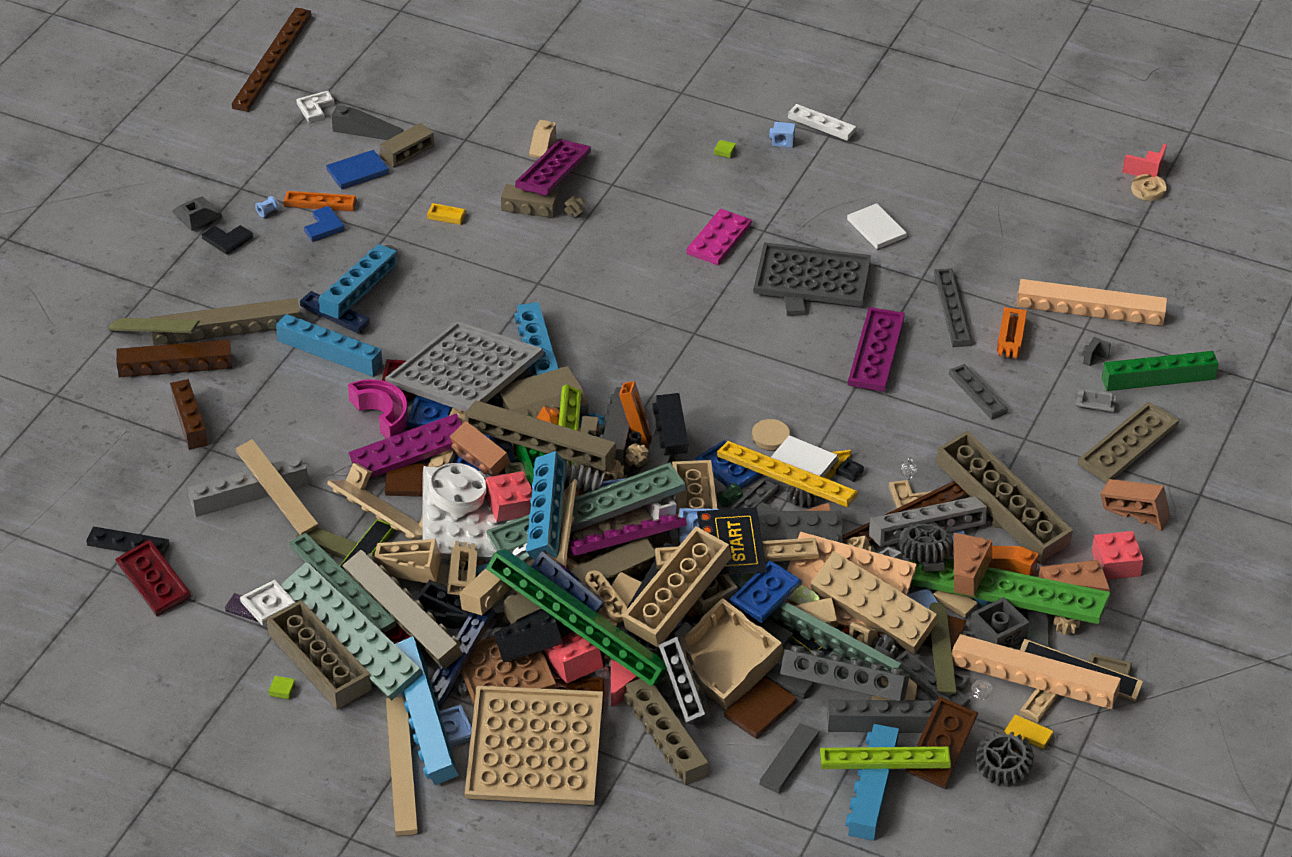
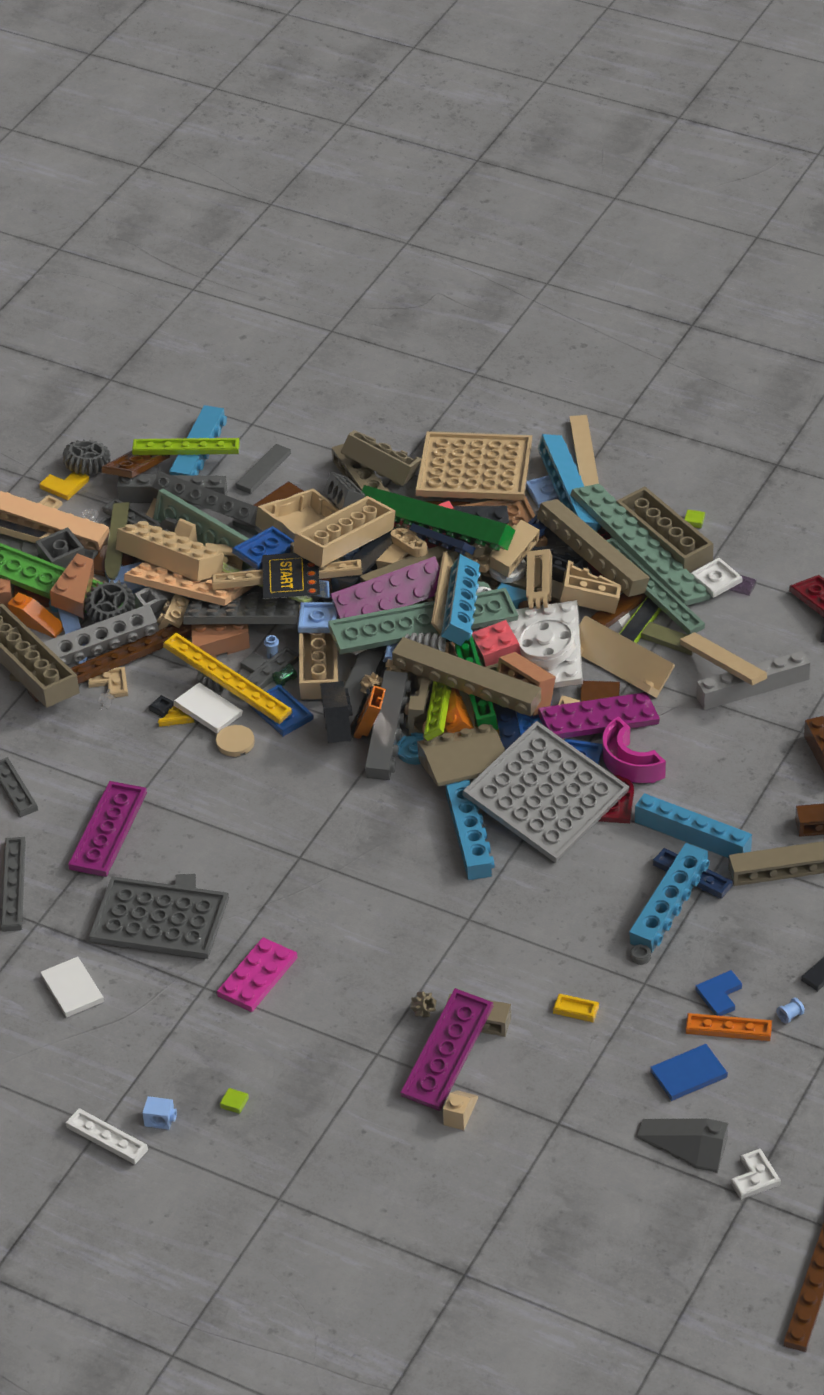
camera: 175 degrees left, 0 degrees up
(407, 145) = (629, 1099): dark tan brick -> none
(643, 728) = (380, 458): none -> dark tan wedge

